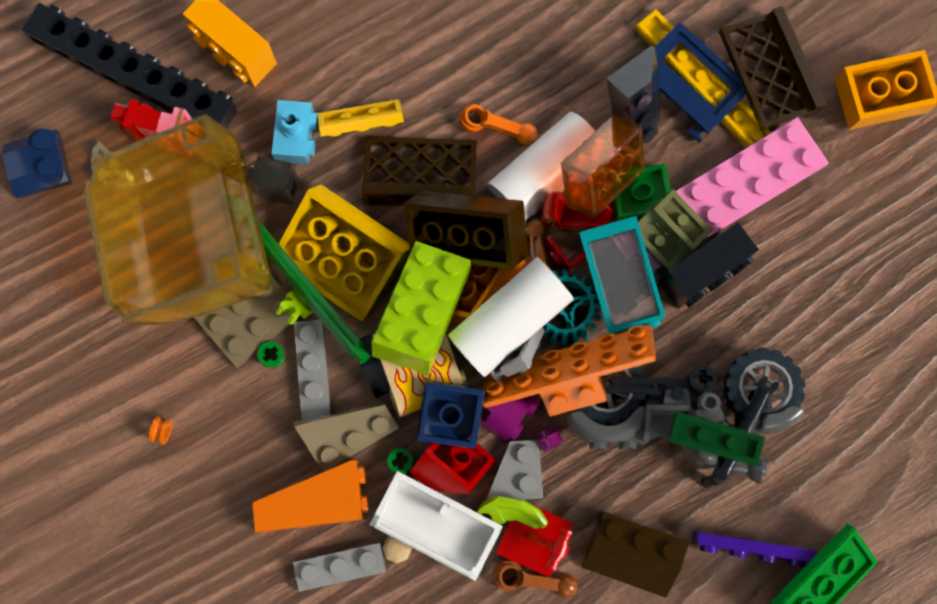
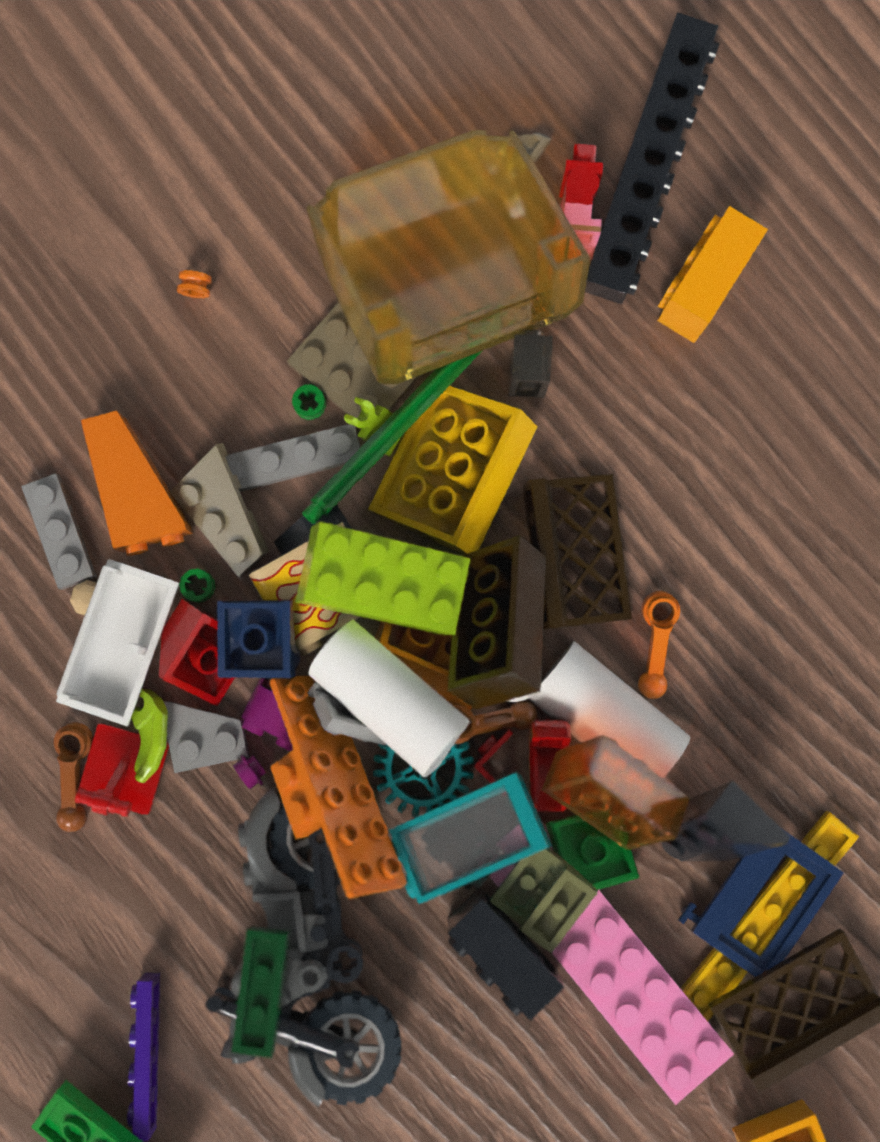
camera: 85 degrees right, 5 degrees up
(36, 163) = (509, 69): dark blue slope -> none
(294, 132) = (601, 380): medium azure brick -> none
(360, 118) = (635, 462): yellow plate -> none
(635, 554) = (120, 901): dark brown slope -> none

